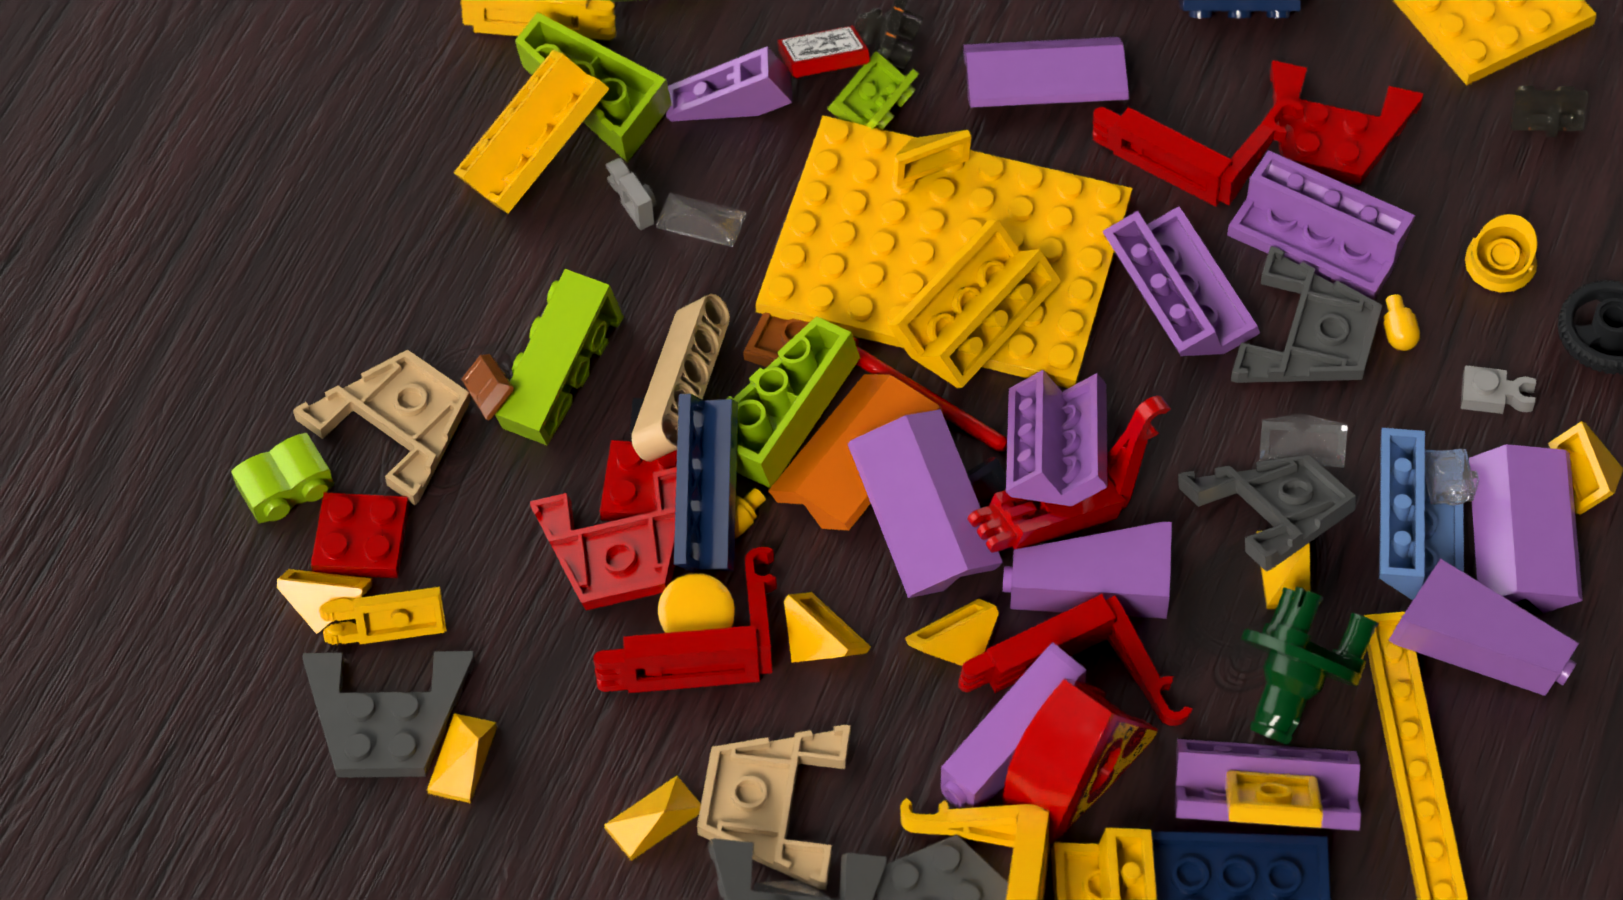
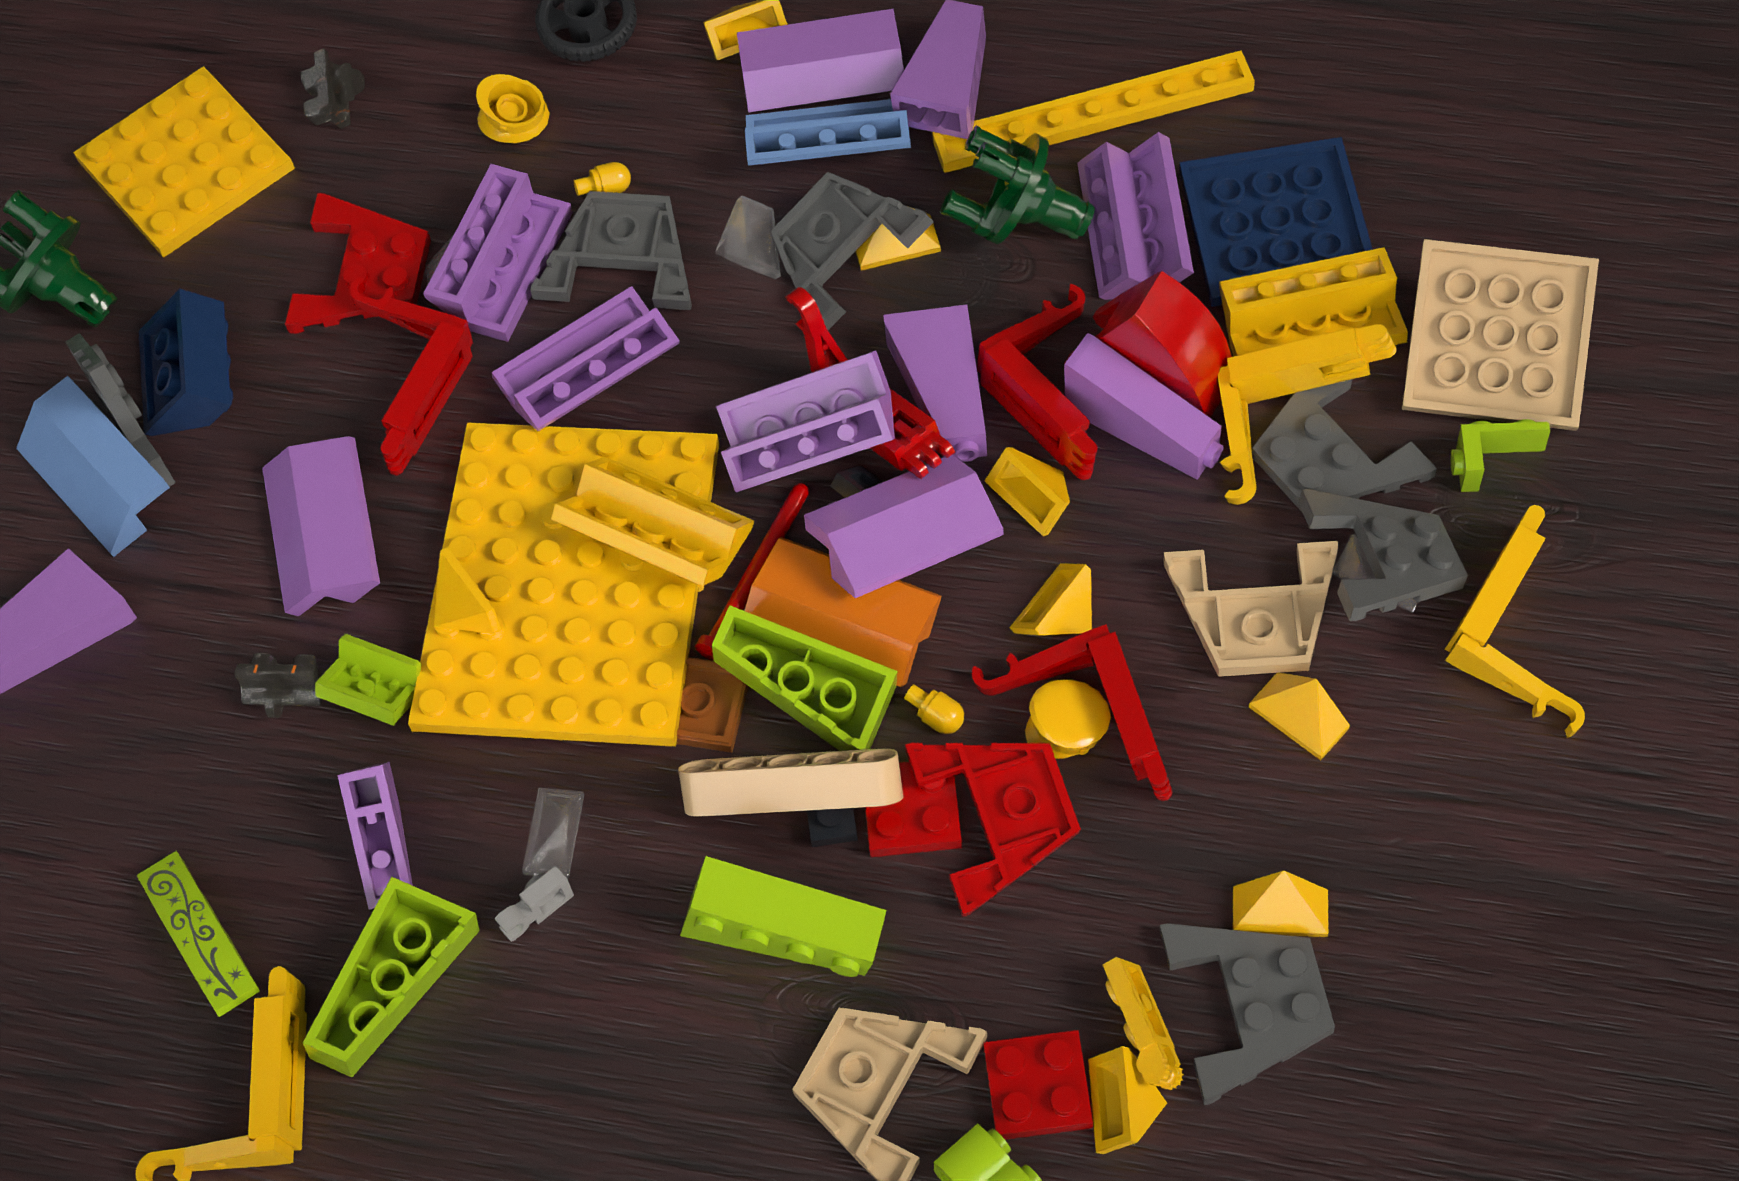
camera: 95 degrees left, 5 degrees up
(487, 385) = (833, 981): dark orange tile -> none
(531, 131) = (475, 1016): yellow slope -> none
(706, 484) = (926, 720): dark blue fence -> none
(823, 51) = (315, 741): tile -> none
(1273, 799) = (1165, 193): yellow tile -> none
(1450, 477) = (782, 109): clear bracket -> none
(1490, 390) = (666, 105): light grey plate -> none

